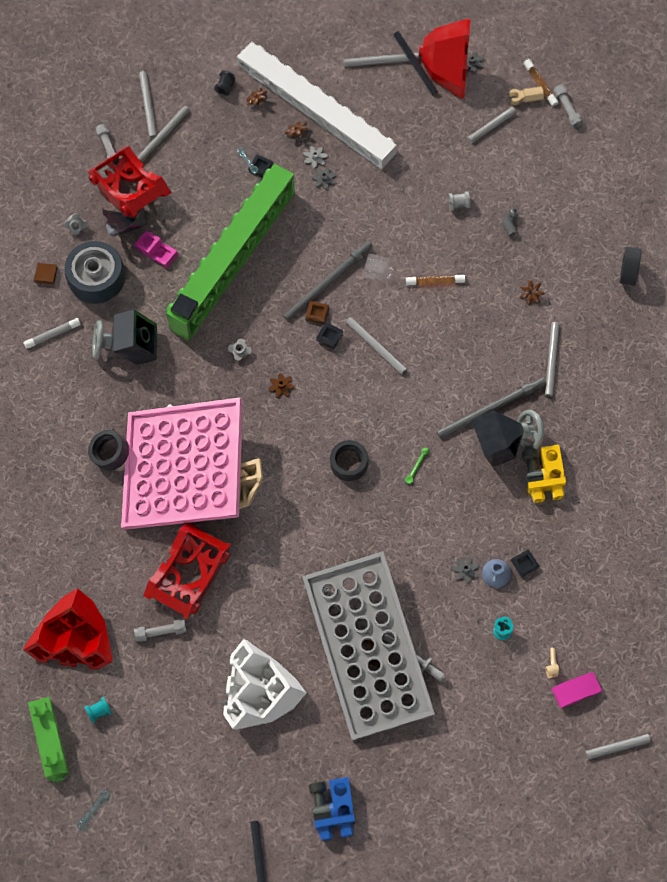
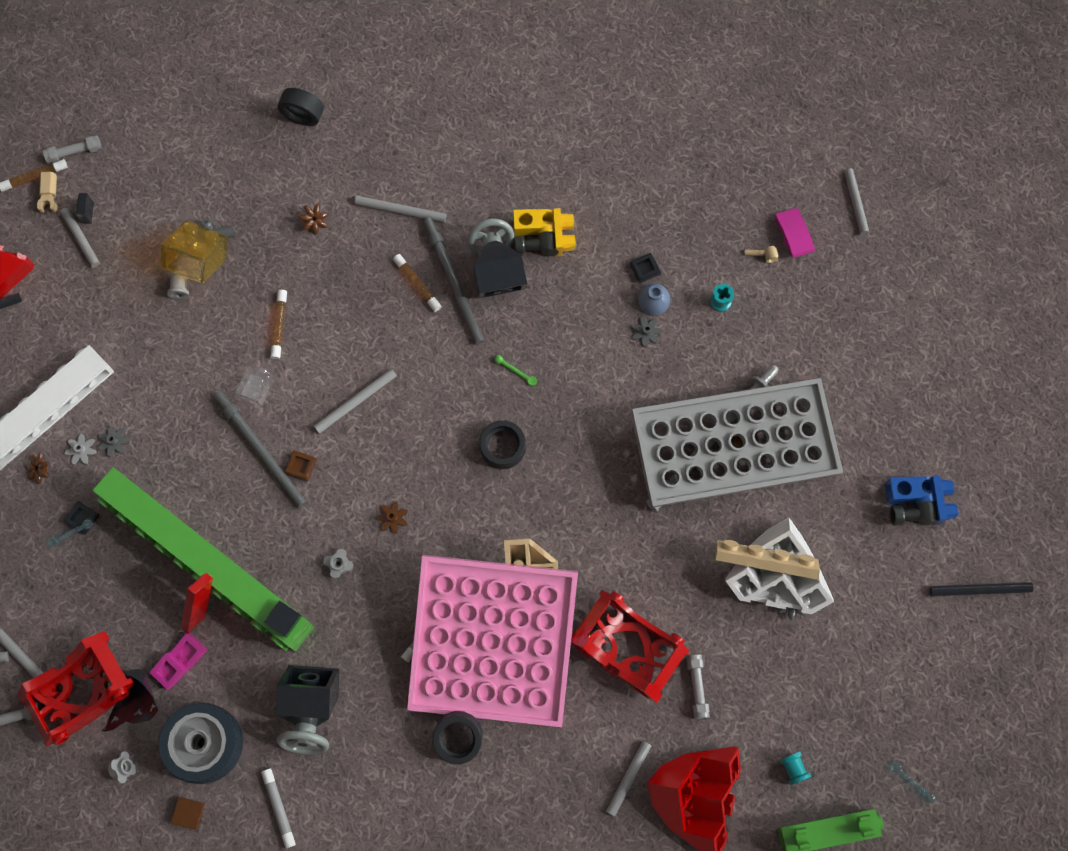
camera: 85 degrees left, 5 degrees up
(85, 582) = (628, 778): none -> light grey bar
(195, 249) = (196, 602): none -> red tile
(264, 672) = (765, 559): none -> tan plate
(329, 335) = (335, 452): black plate -> none
(485, 205) = (194, 251): none -> clear yellow brick
(485, 380) = (417, 283): none -> clear orange bar
(515, 123) = (84, 208): none -> black tile

